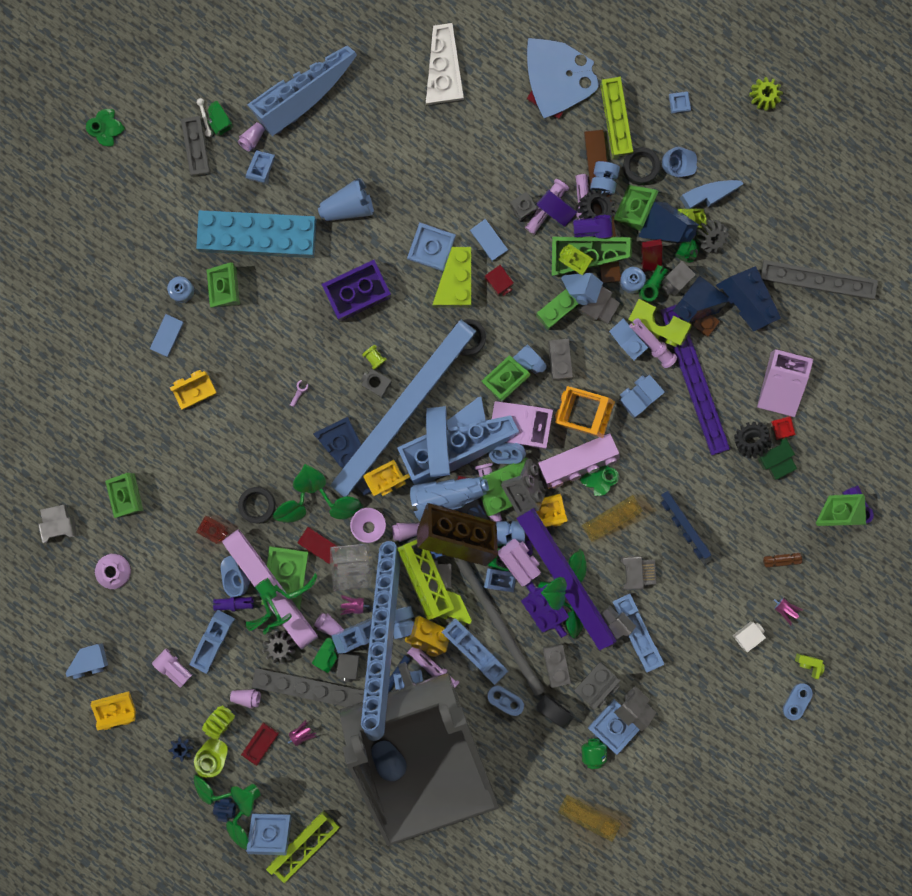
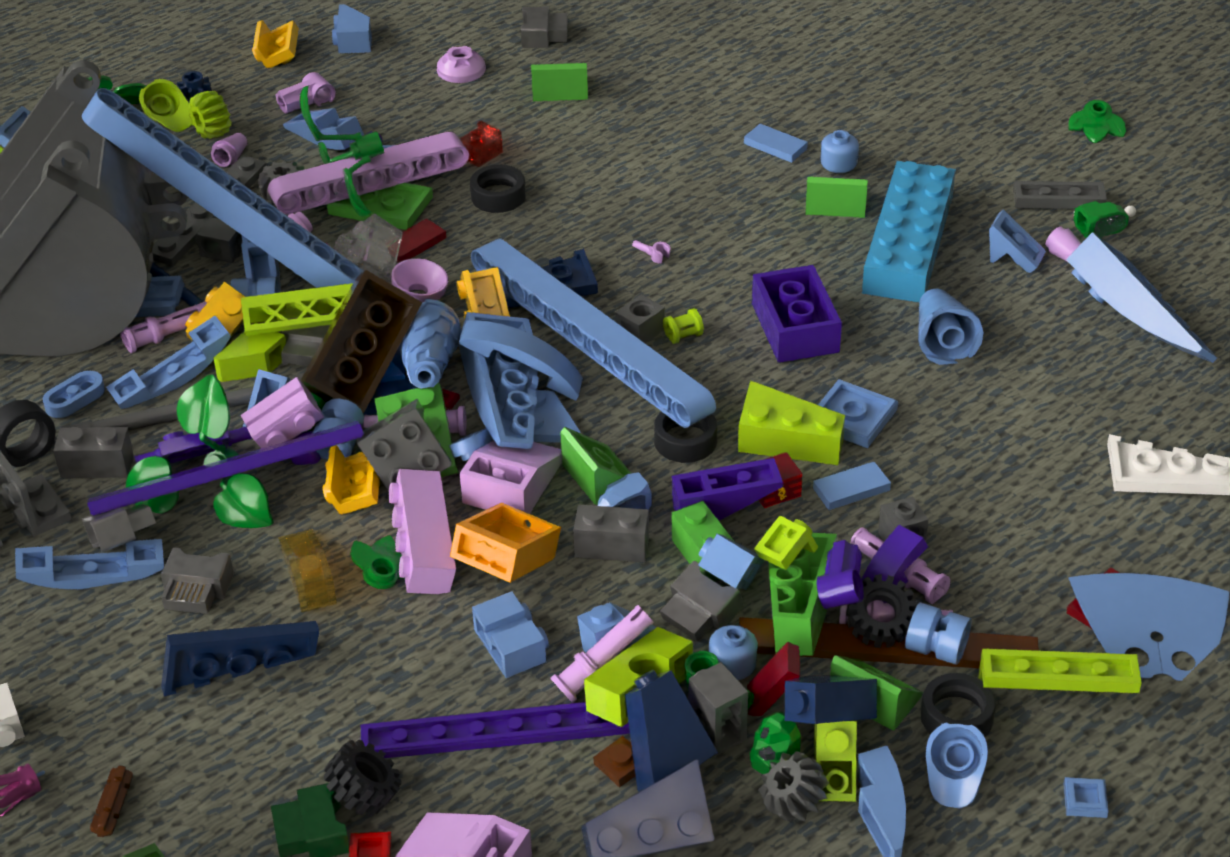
camera: 105 degrees right, 45 degrees down
(193, 389) = (689, 151): yellow bracket -> none
(310, 481) = (507, 231): green plant -> none
(521, 303) = (726, 487): none -> dark purple slope

